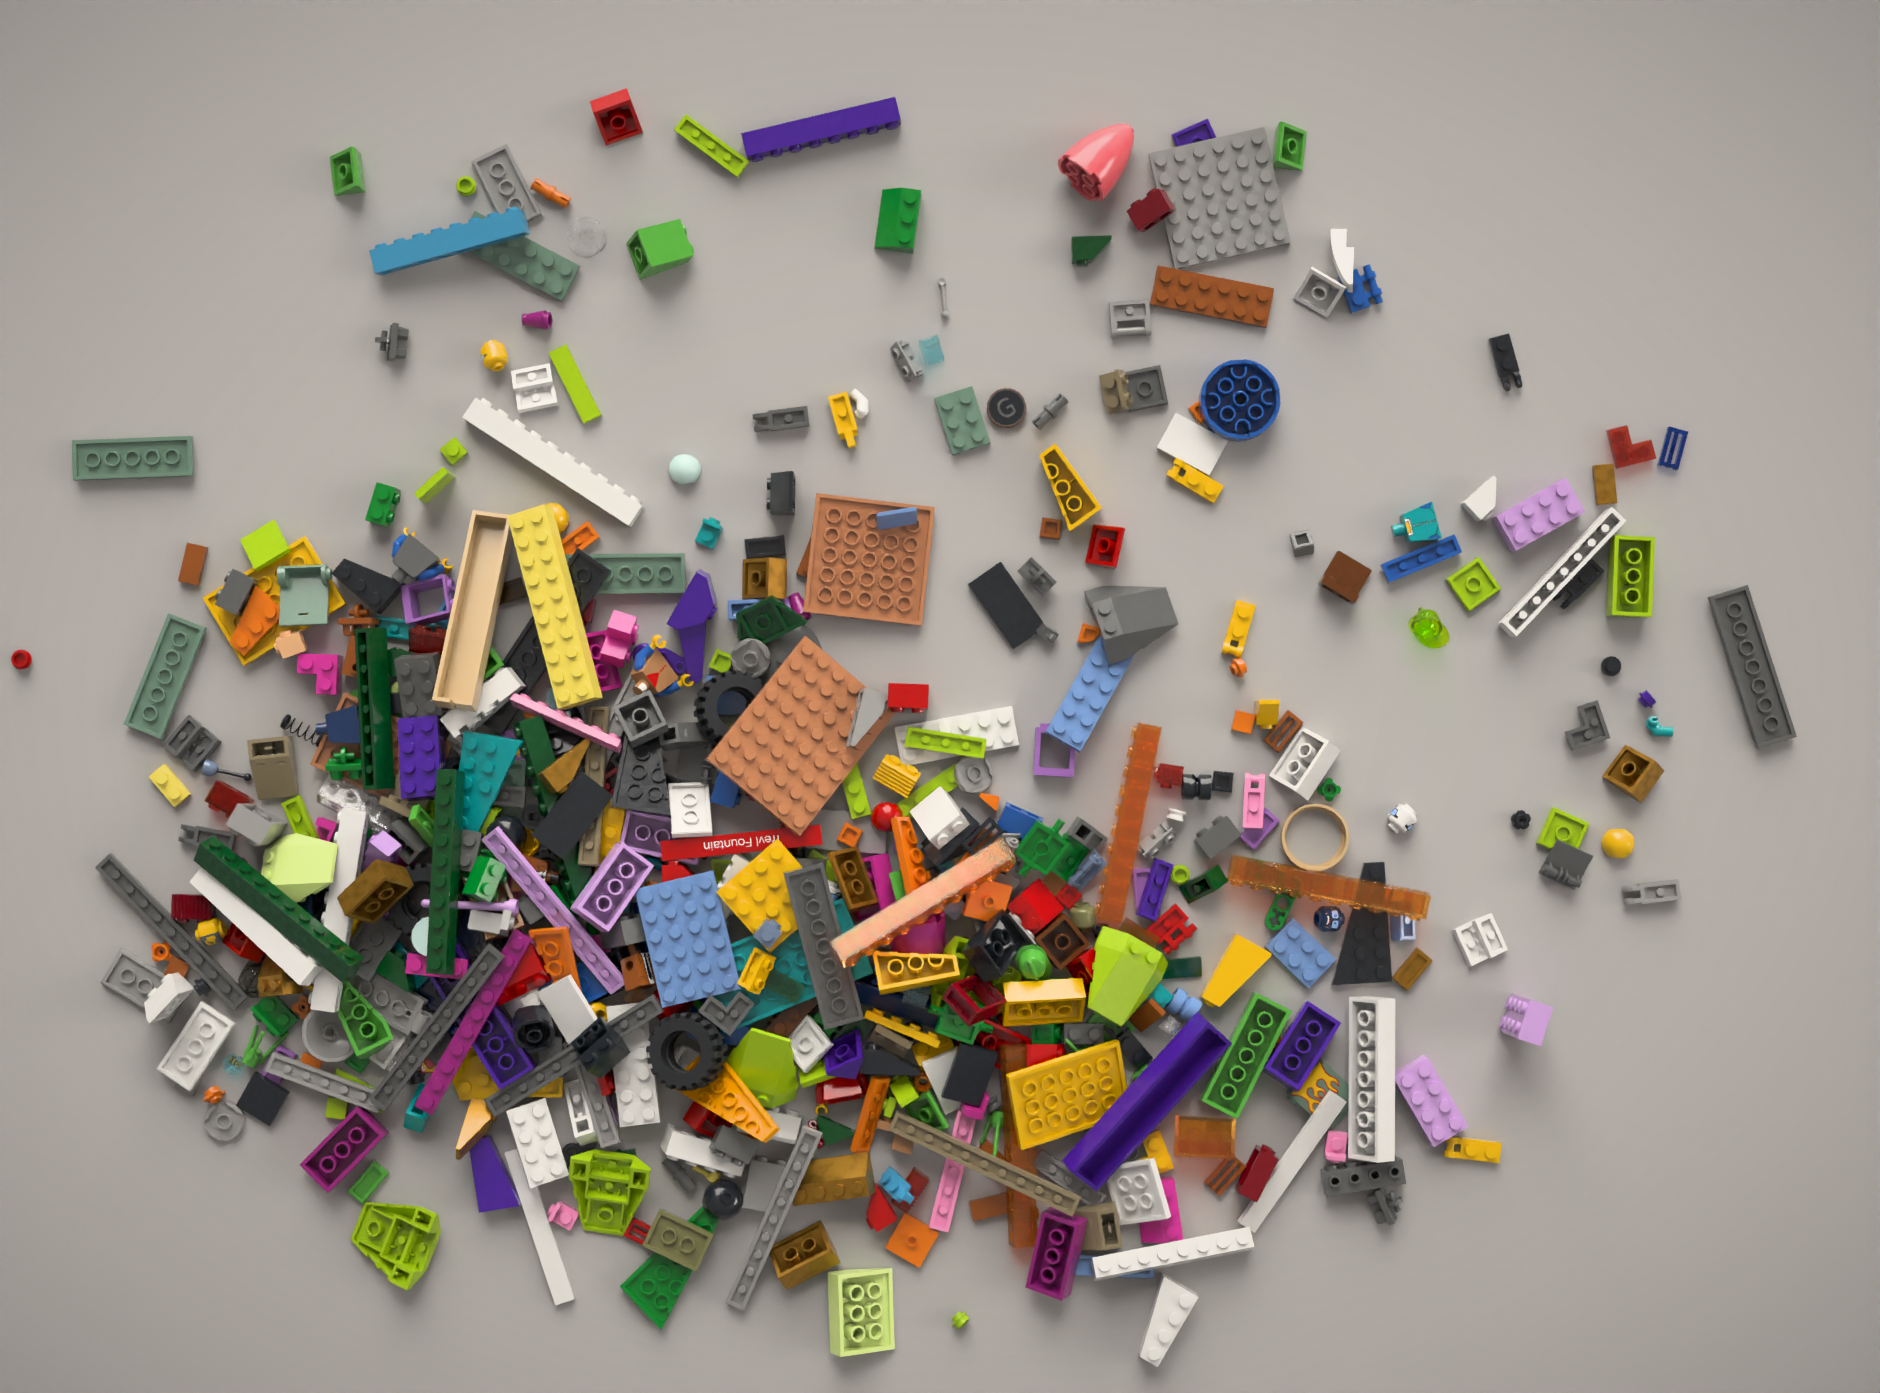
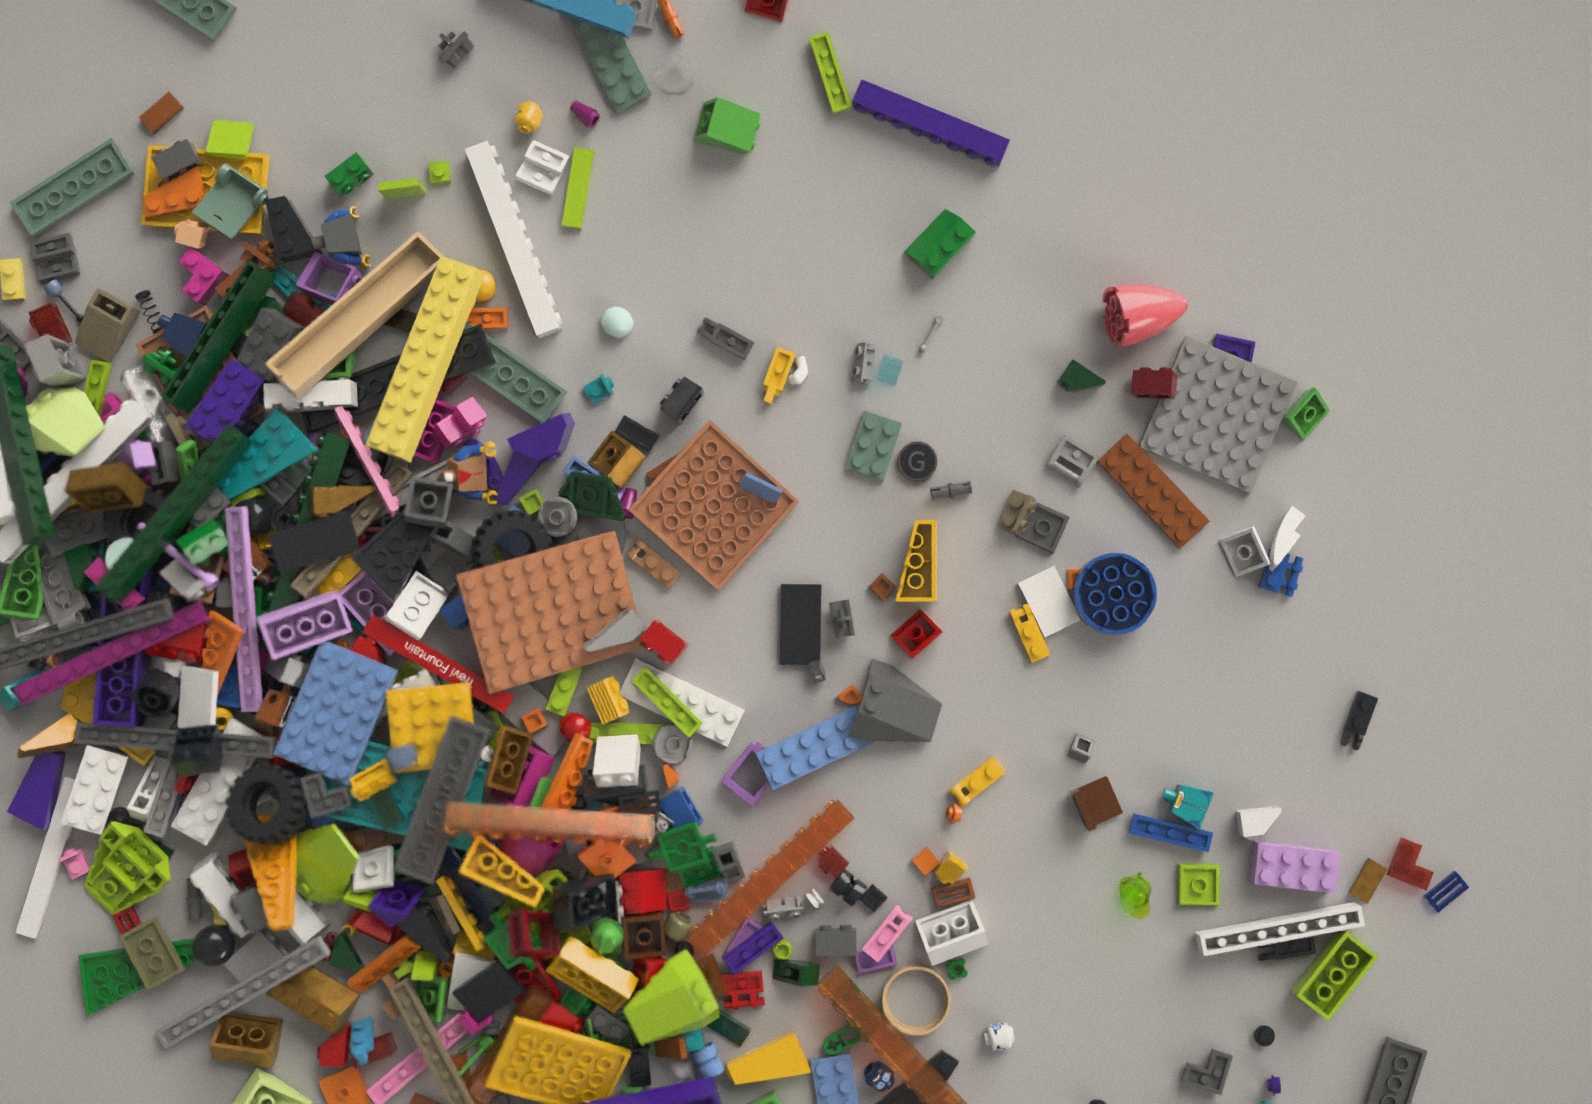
camera: 35 degrees right, 0 degrees up
(854, 641) = (654, 564): none -> medium nougat plate

